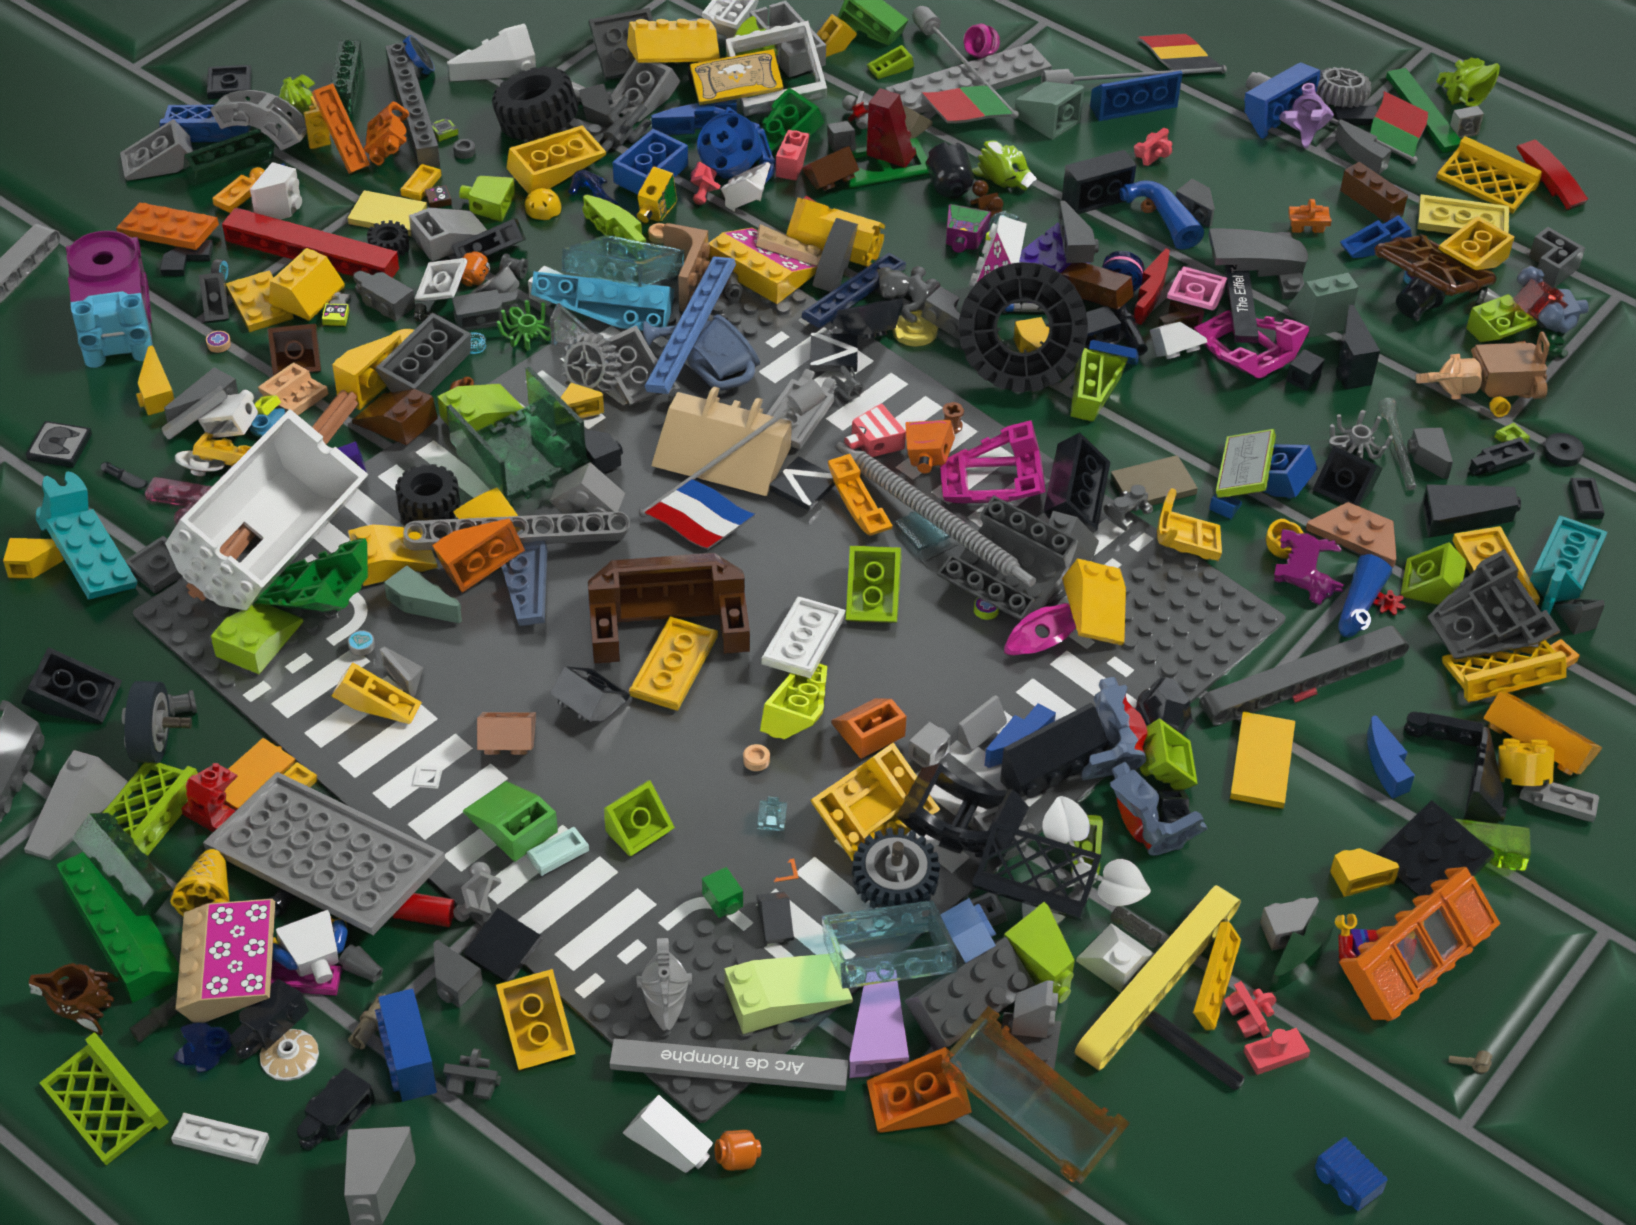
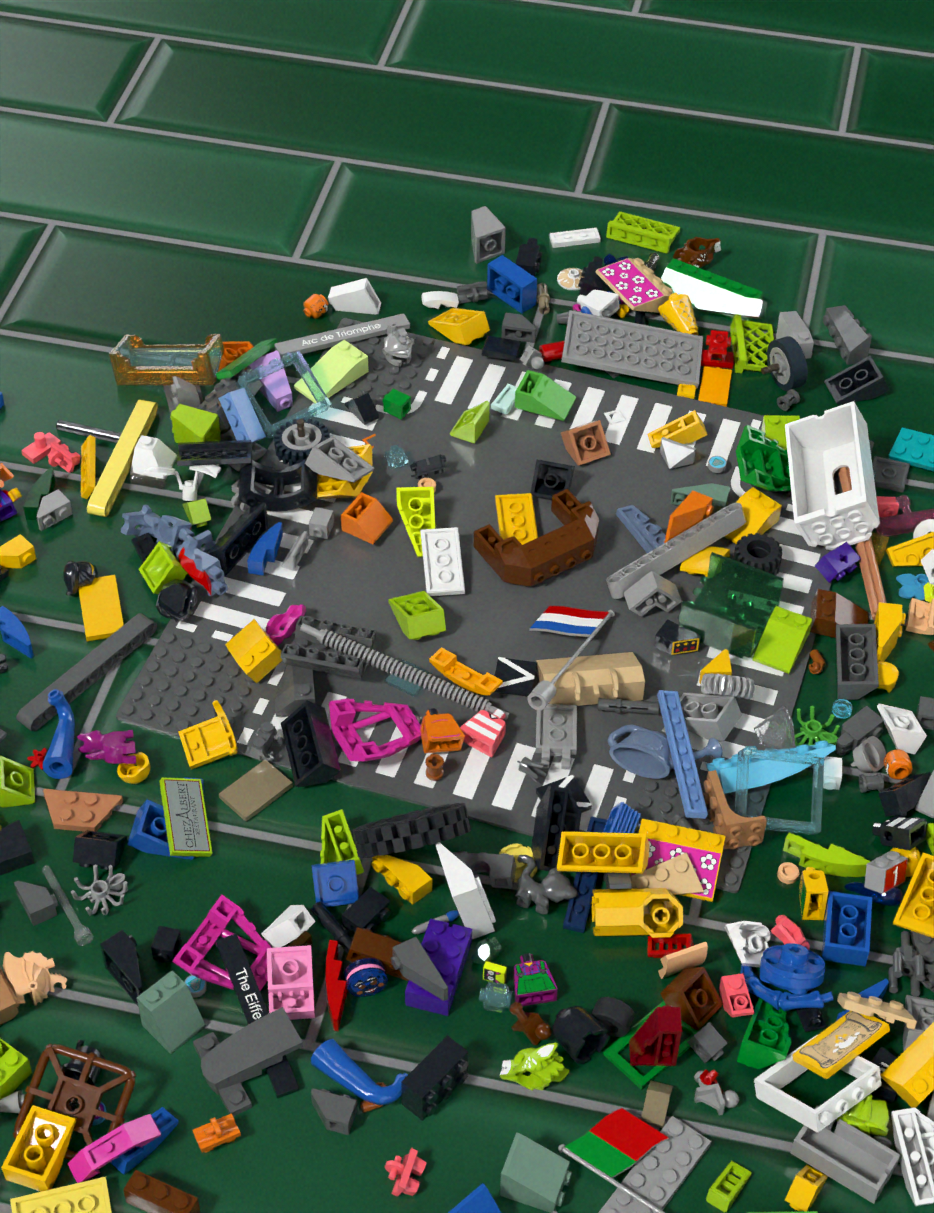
camera: 155 degrees right, 0 degrees up
(531, 1082) = (435, 298): none -> white slope
(532, 206) = (901, 832): none -> black torso
(578, 181) = (886, 872): none -> light grey brick
(684, 88) = (887, 1011): none -> tan wing
(740, 770) = (422, 469): none -> black hinge
(800, 295) = (622, 820): none -> blue brick
(821, 182) = (682, 959): none -> light nougat slope
(840, 263) = (603, 852): none -> yellow slope
(870, 788) = (337, 461): none -> light grey slope
(908, 1046) = (246, 359): none -> green tile
(912, 174) = (613, 1015): none -> black tyre
(1279, 802) = (77, 575): none -> black hair
(1385, 211) = (112, 1145): none -> dark pink slope

